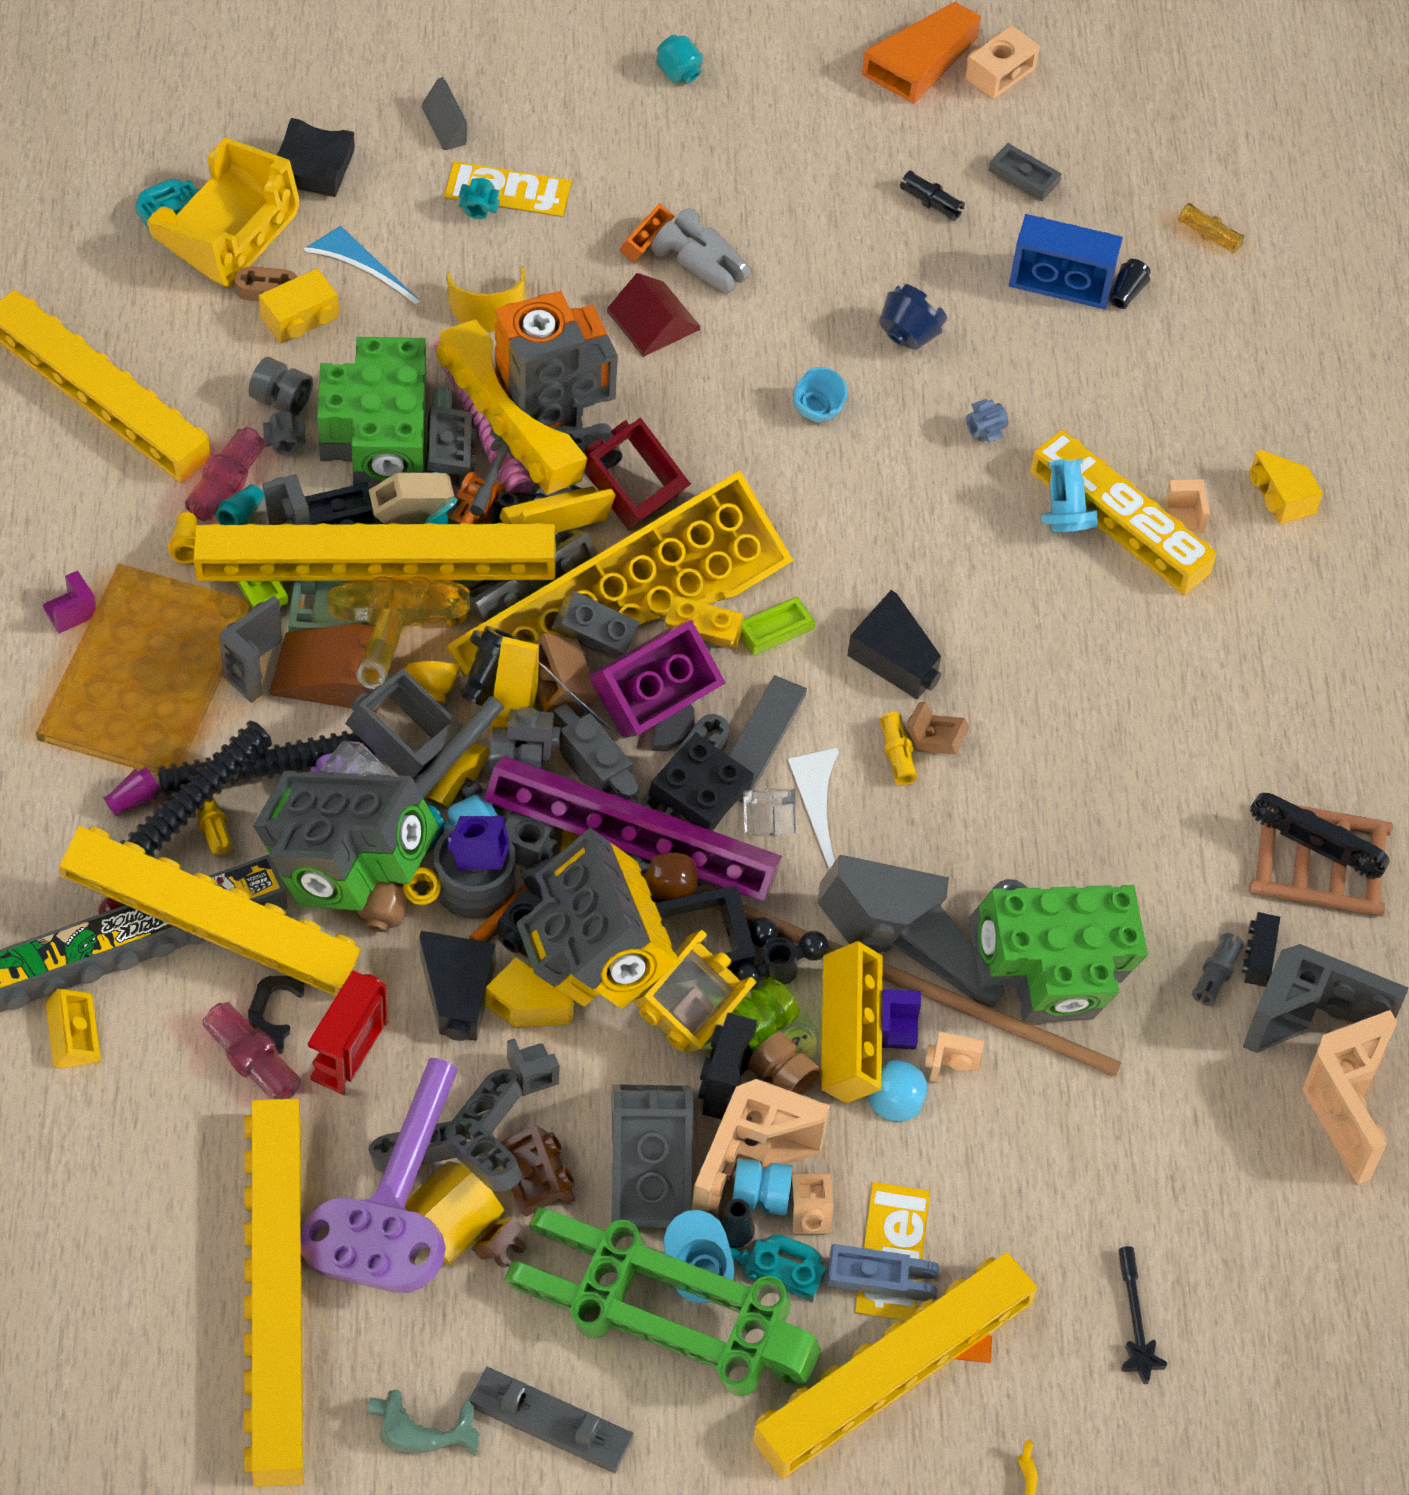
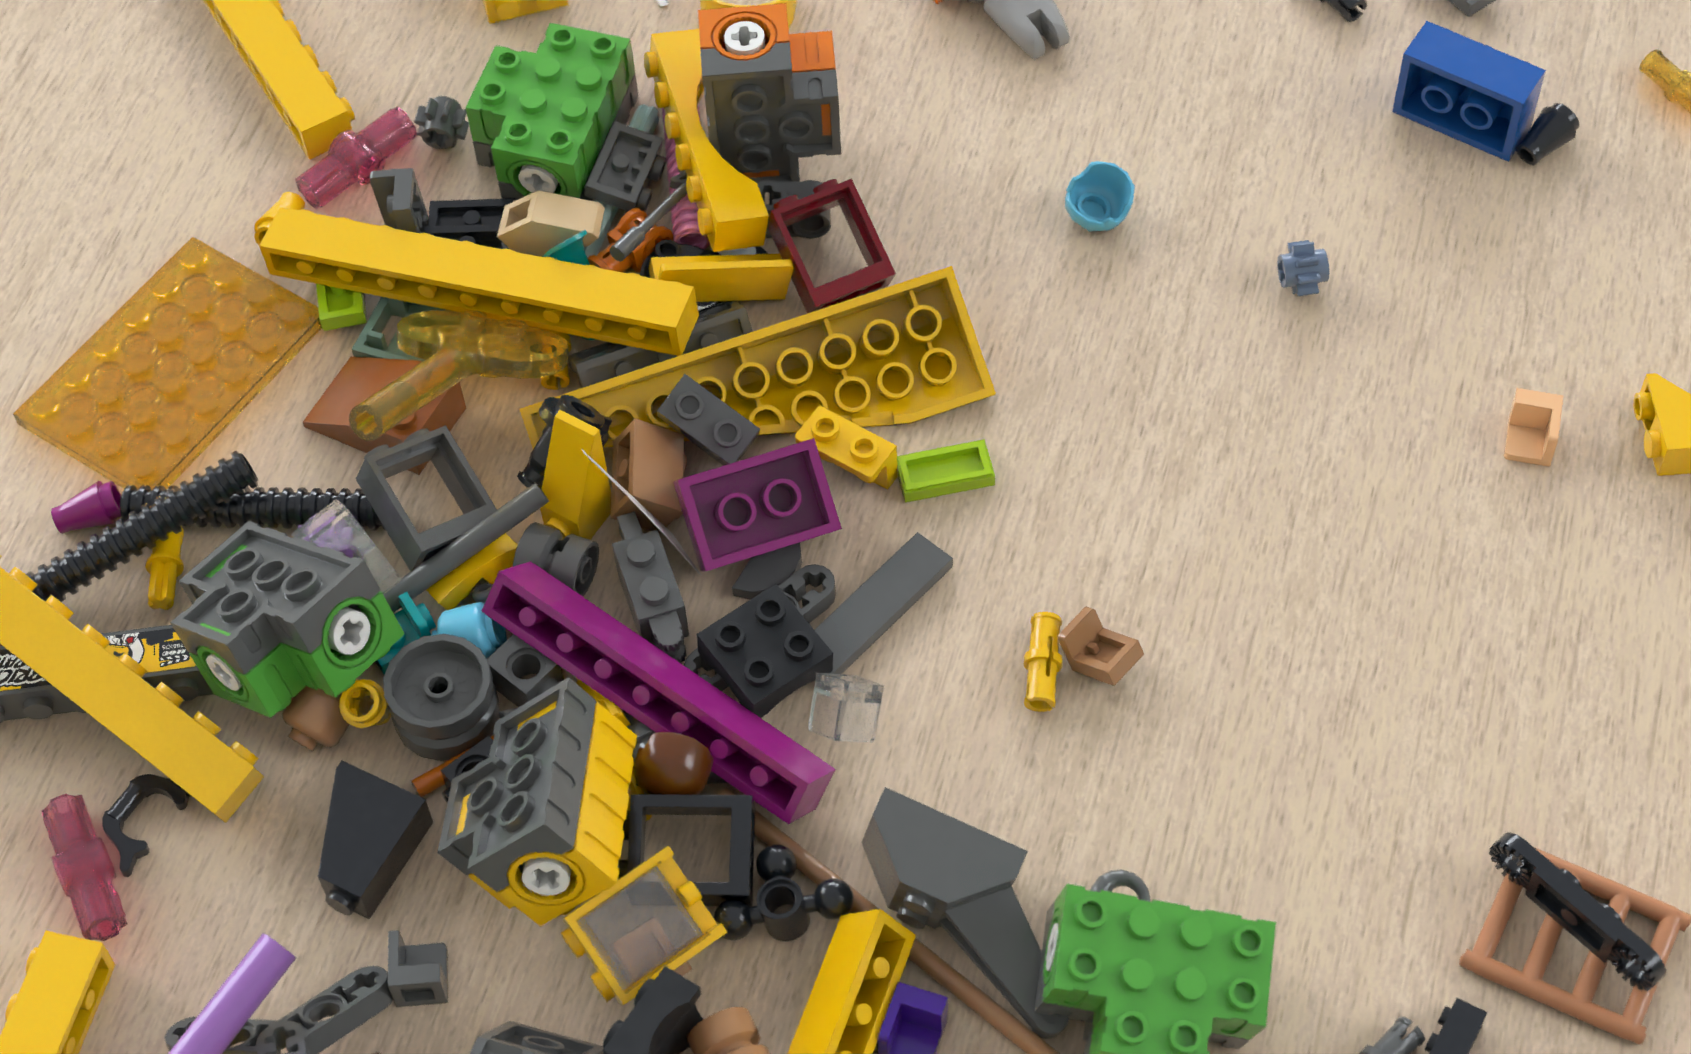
camera: 25 degrees right, 0 degrees up
(74, 606) = (120, 278): magenta panel -> none
(240, 507) = (352, 200): teal cone -> none
(244, 644) = (291, 356): dark grey bracket -> none
(278, 385) = (453, 65): dark grey wheel -> none
(348, 1030) = (199, 868): red window -> none
(434, 677) = (490, 449): yellow piece -> none
(479, 842) = (443, 664): dark purple brick -> none
(527, 999) = (439, 886): yellow slope -> none
(536, 726) = (581, 533): dark grey bracket -> none
(651, 314) = (932, 65): dark red slope -> none
(771, 1007) = (734, 974): clear neon green wheel -> none
(803, 1036) = (776, 1021): clear tile -> none
(812, 777) = (921, 676): white sticker -> none
(896, 647) = (1084, 529): black slope -> none
(910, 318) = (1245, 124): dark blue cone -> none
(1068, 498) = (1372, 385): medium azure piece -> none
(1131, 516) = (1447, 419): yellow brick -> none

